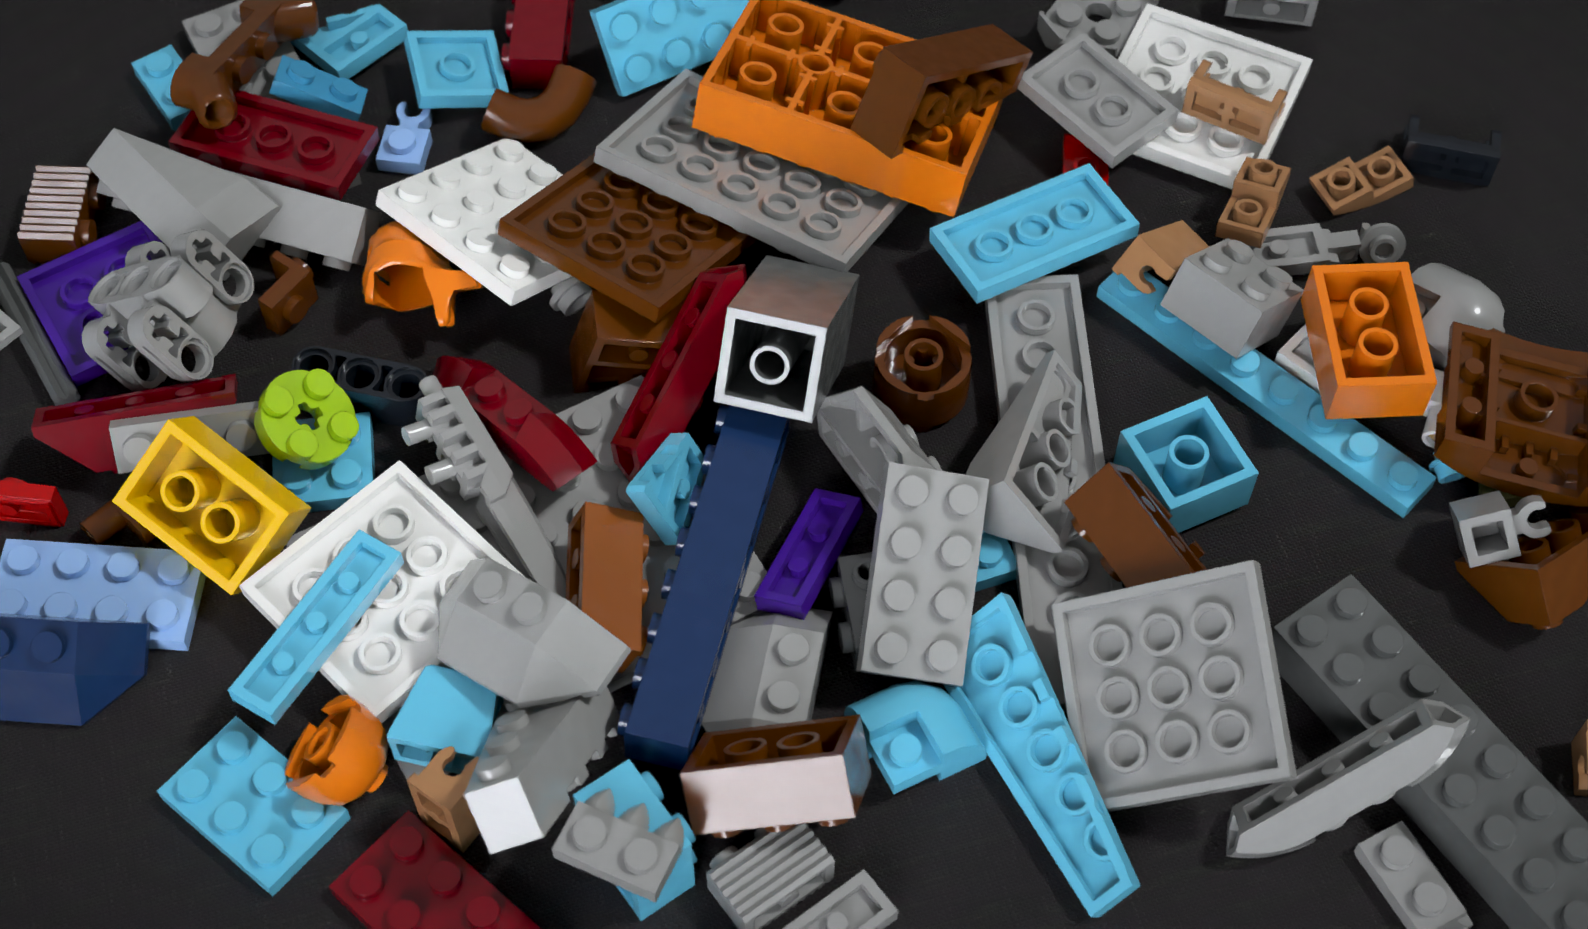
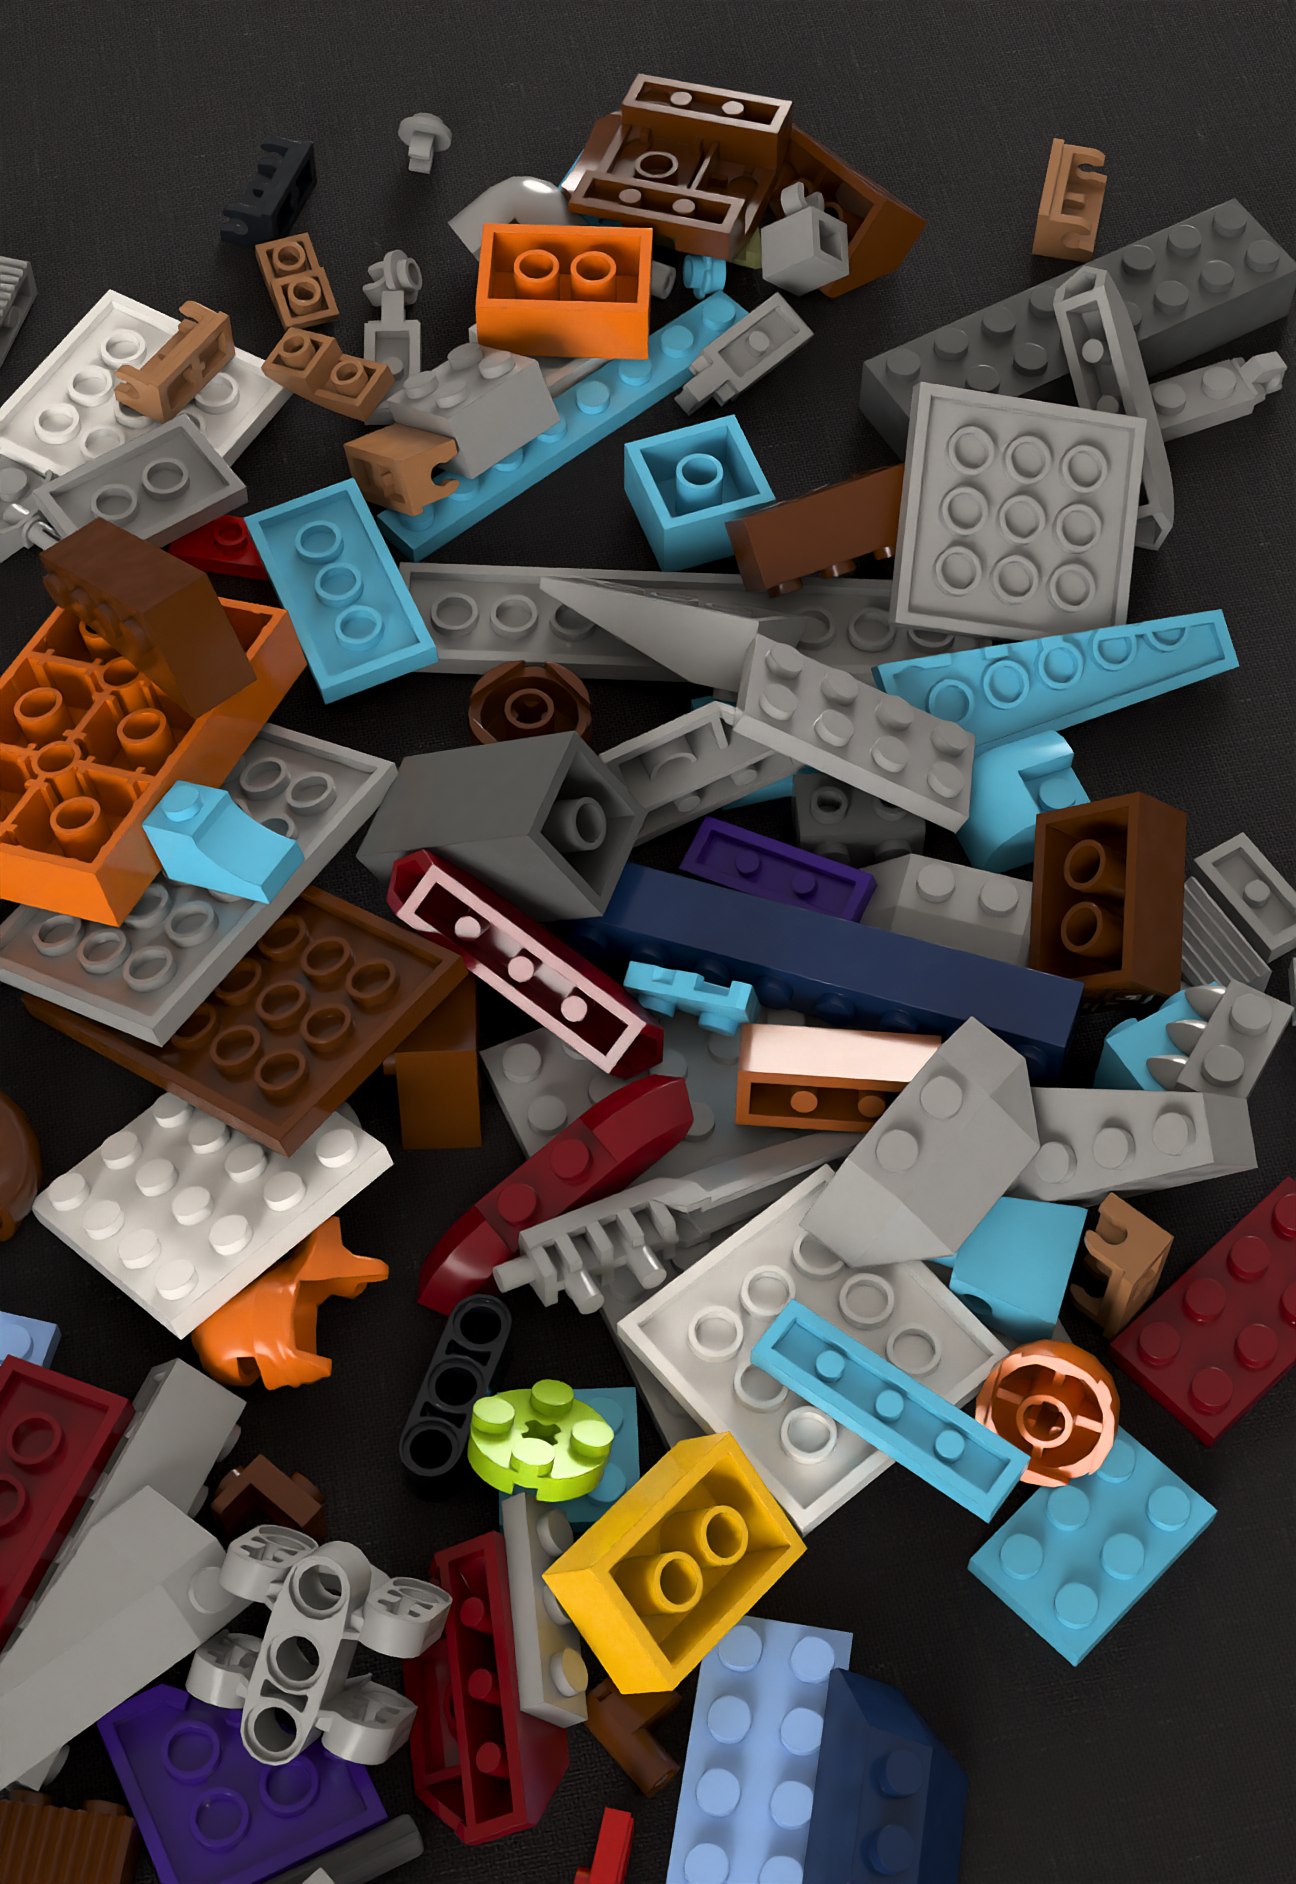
camera: 85 degrees left, 0 degrees up
(753, 163) = (218, 846): none -> medium azure arch
(1364, 500) = (744, 354): none -> light grey hinge
(1540, 244) = (424, 135): none -> light grey plate

